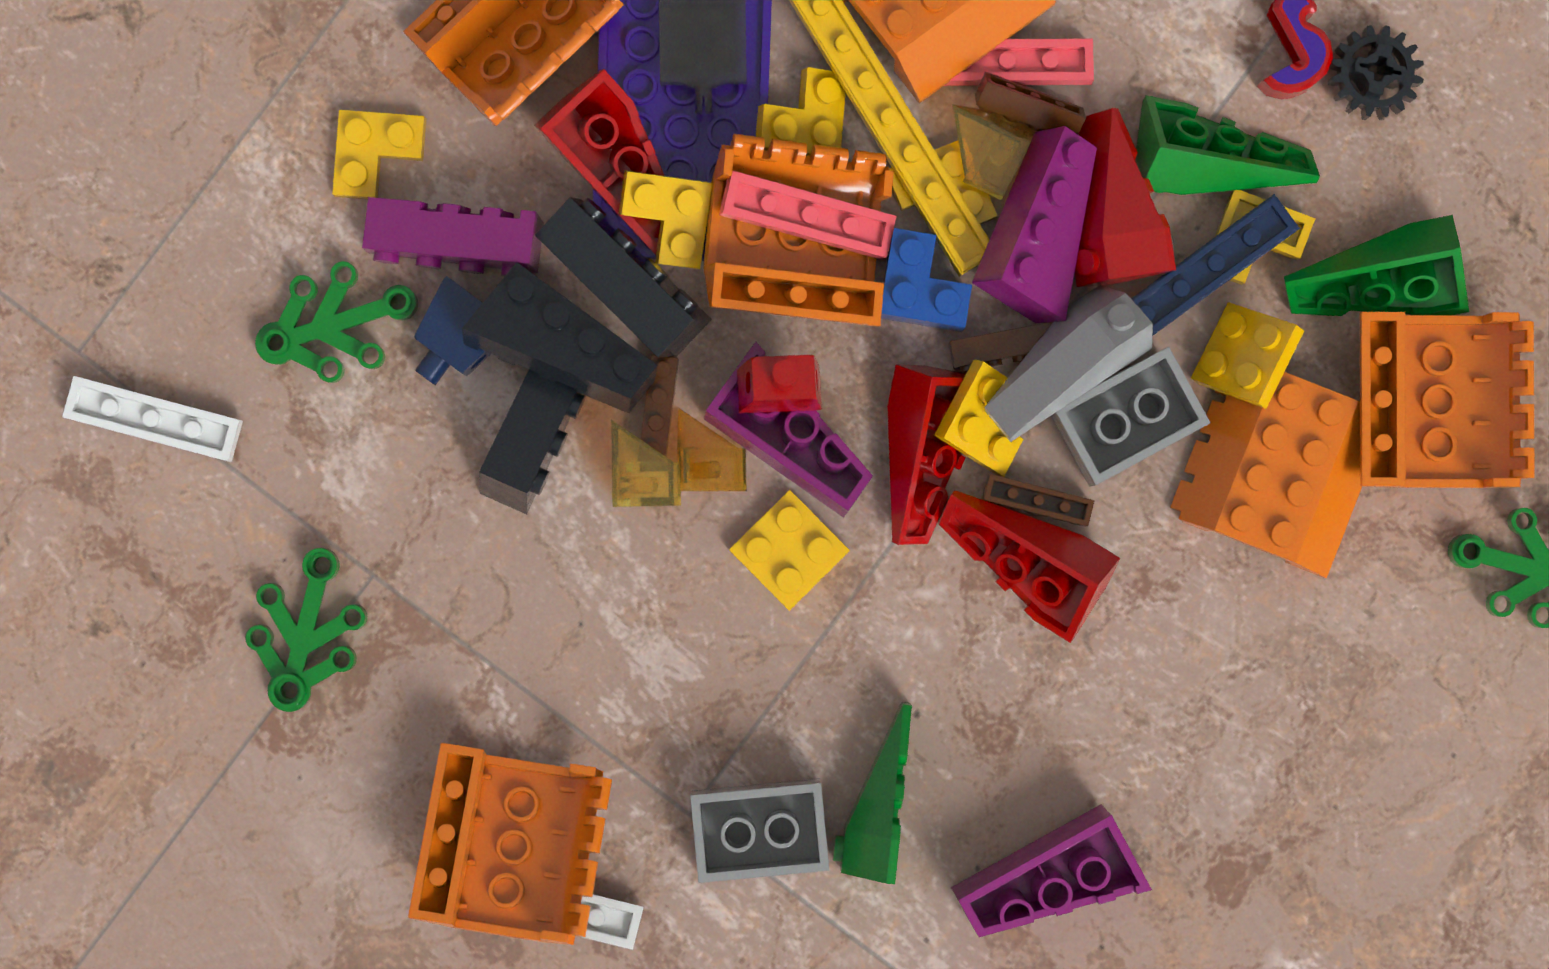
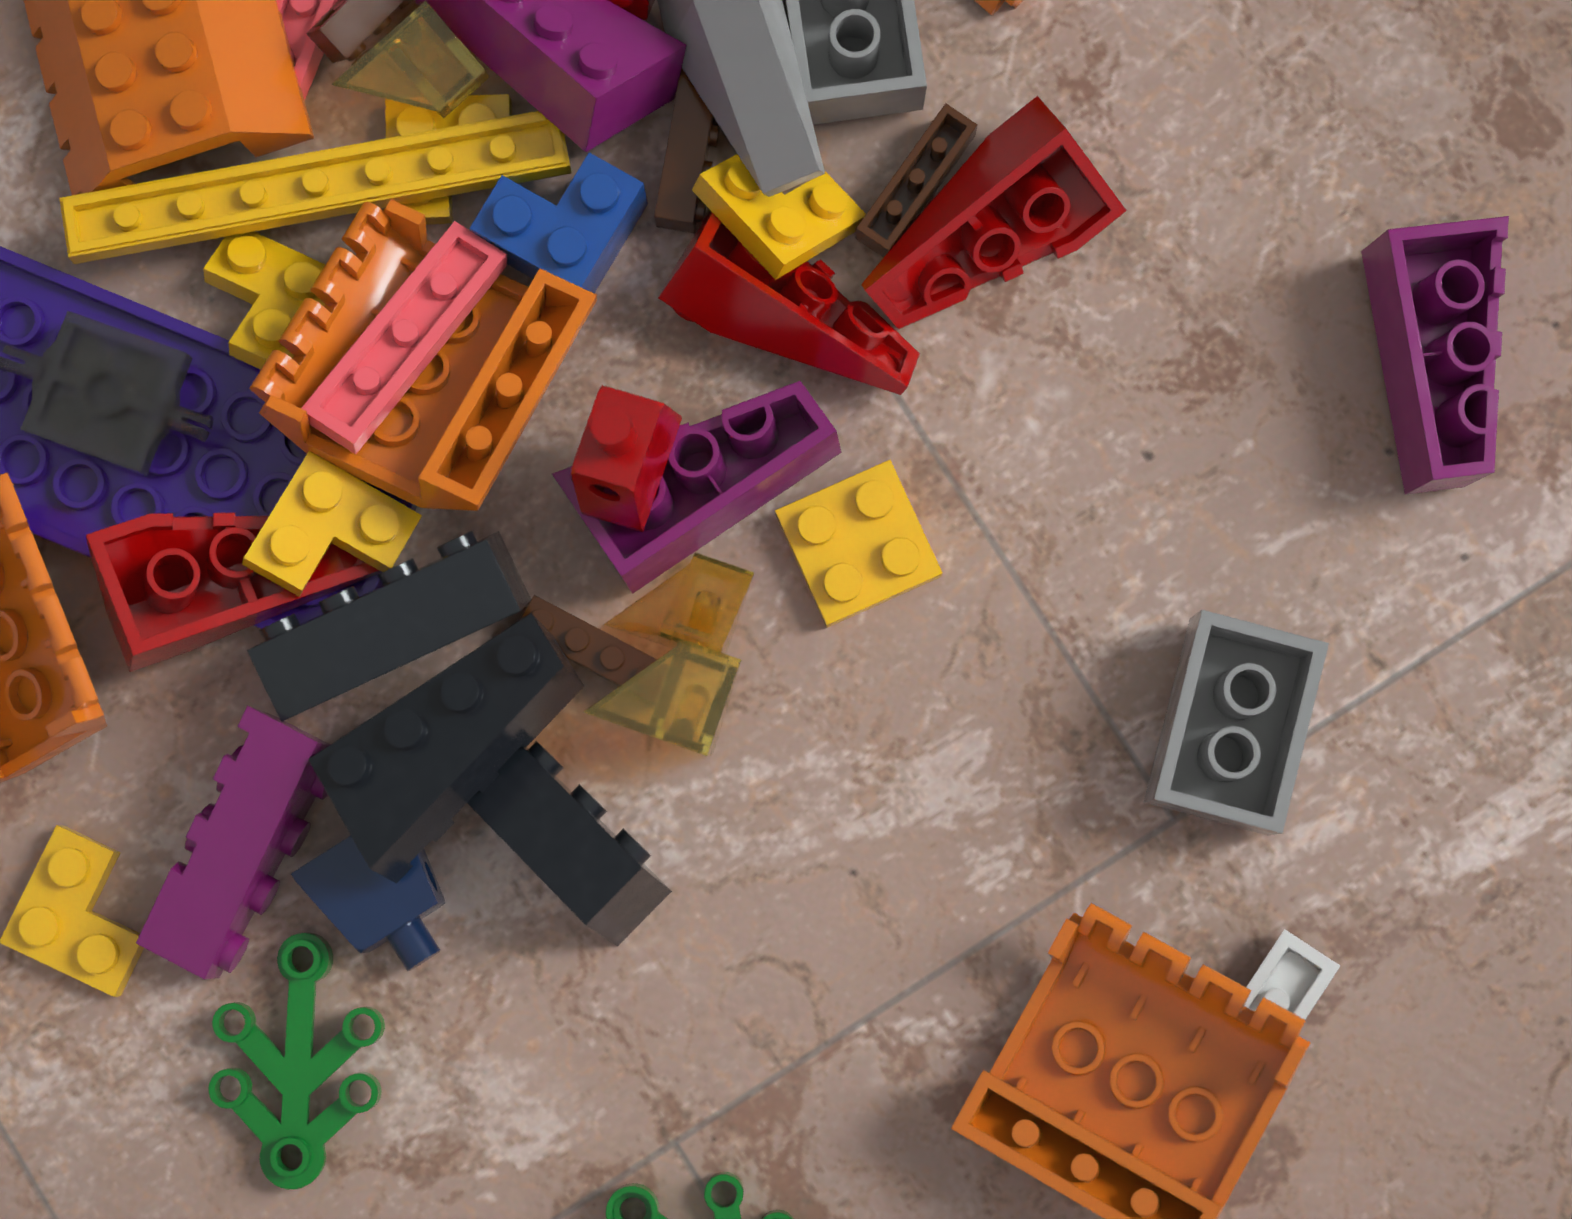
camera: 70 degrees left, 5 degrees down
(873, 826) = (1290, 568): green wedge -> none

